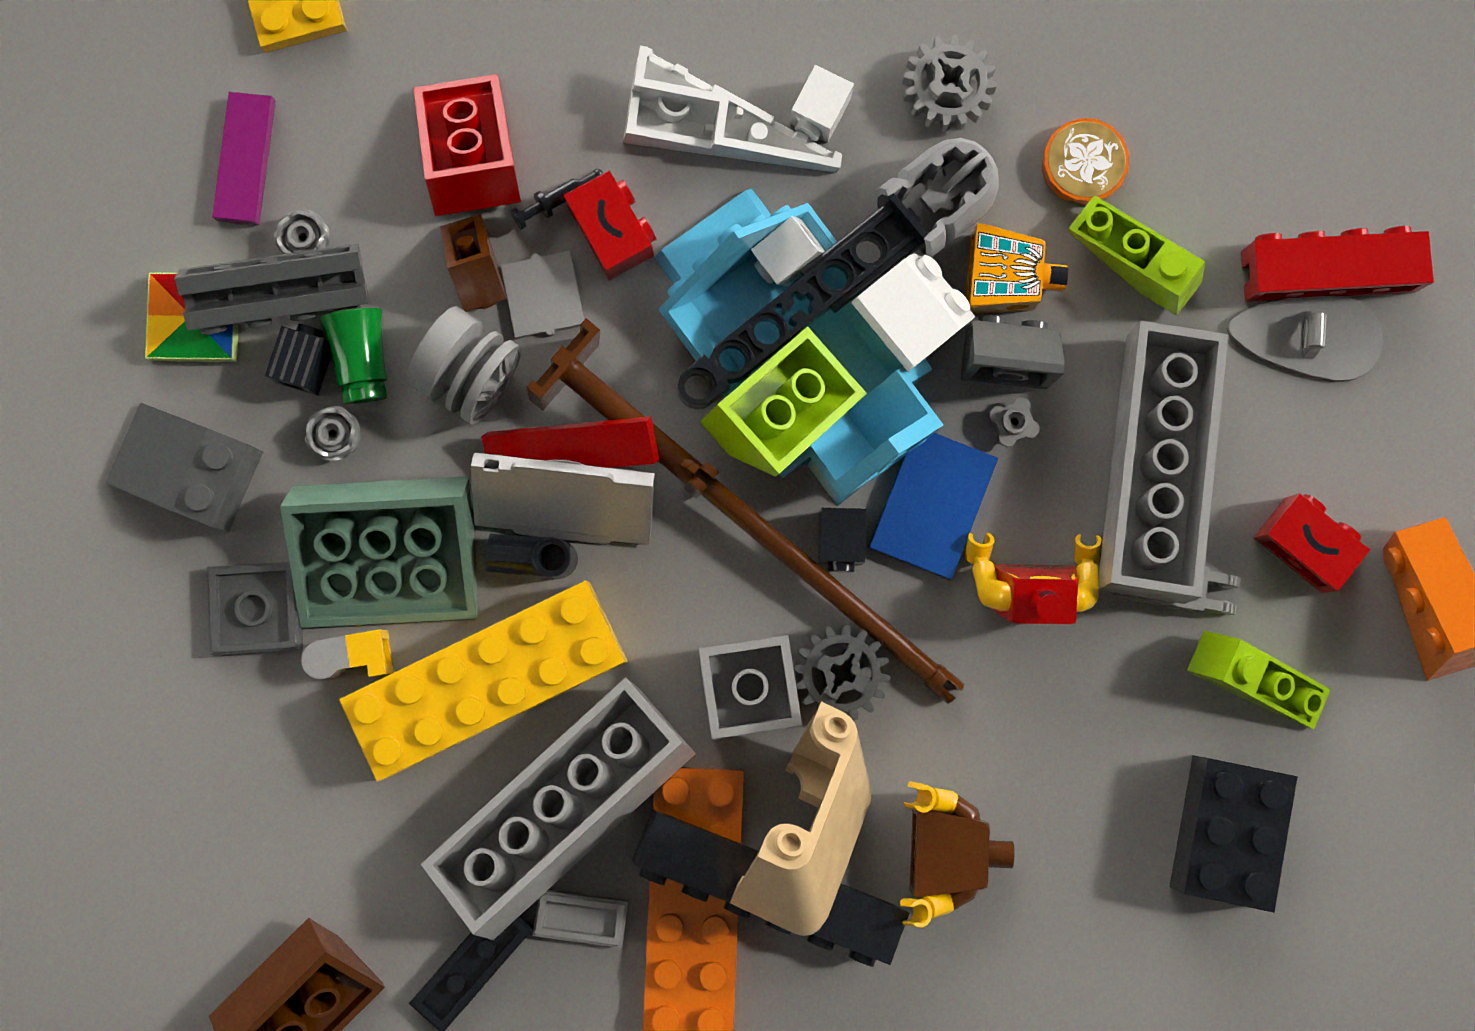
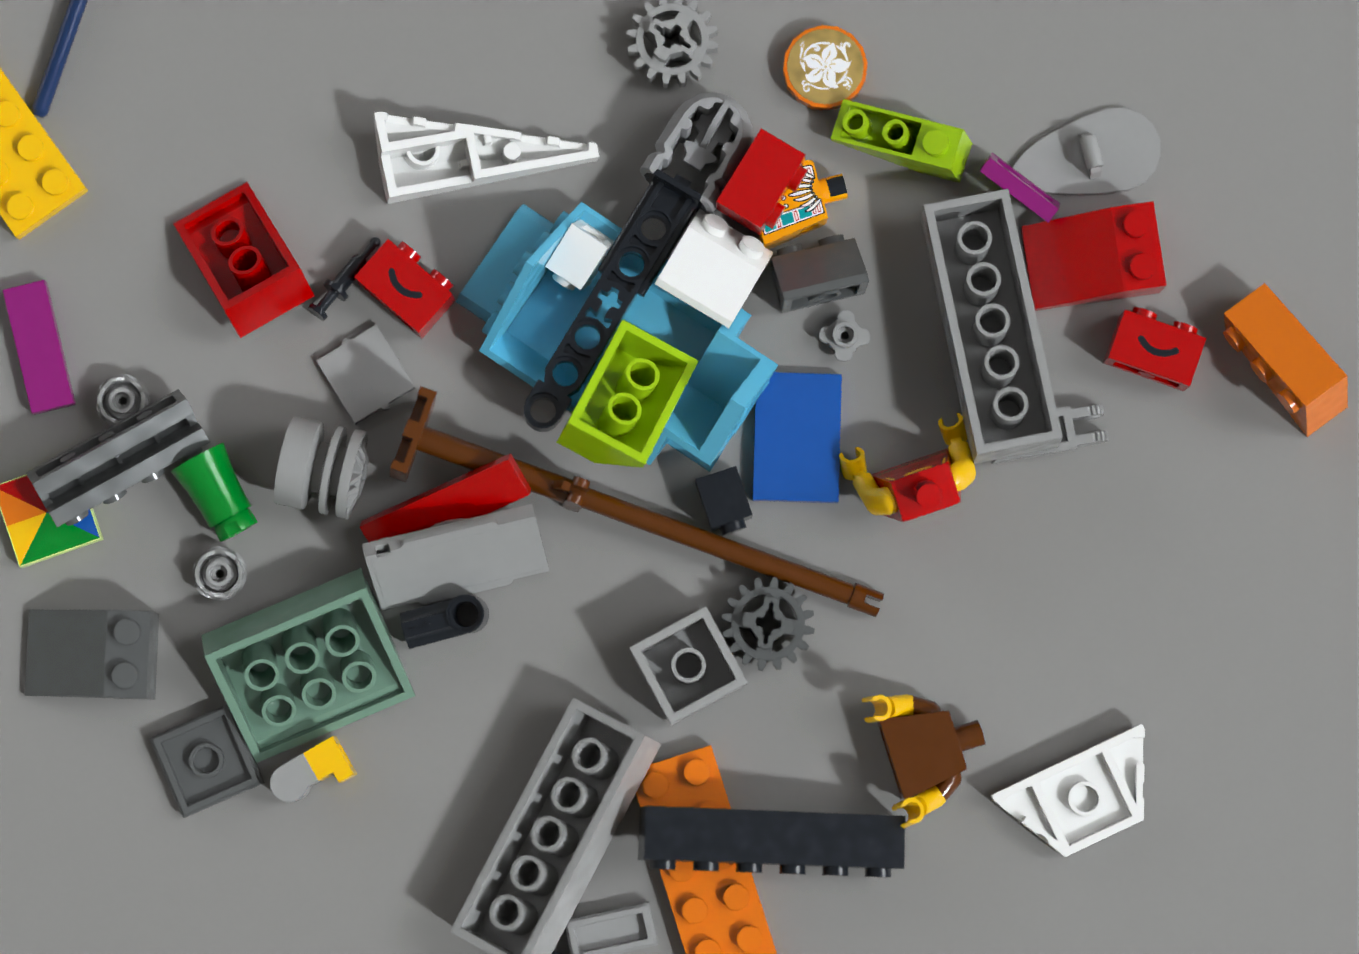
camera: 15 degrees left, 0 degrees up
(299, 359) = (164, 515): black brick -> none
(472, 263) = (290, 368): reddish brown slope -> none
(483, 681) = (444, 748): yellow brick -> none
(802, 870) = (792, 804): tan windscreen -> none
(821, 104) = (560, 105): white brick -> none
(991, 241) = (761, 182): none -> red brick
(1089, 953) = (1082, 795): none -> white wing
(1233, 833) = (1173, 638): black brick -> none
(1236, 340) = (1020, 187): none -> magenta tile
(1258, 678) = (1150, 491): lime slope -> none
(1289, 433) = (1094, 256): none -> red slope
(1337, 265) = (1090, 83): red brick -> none

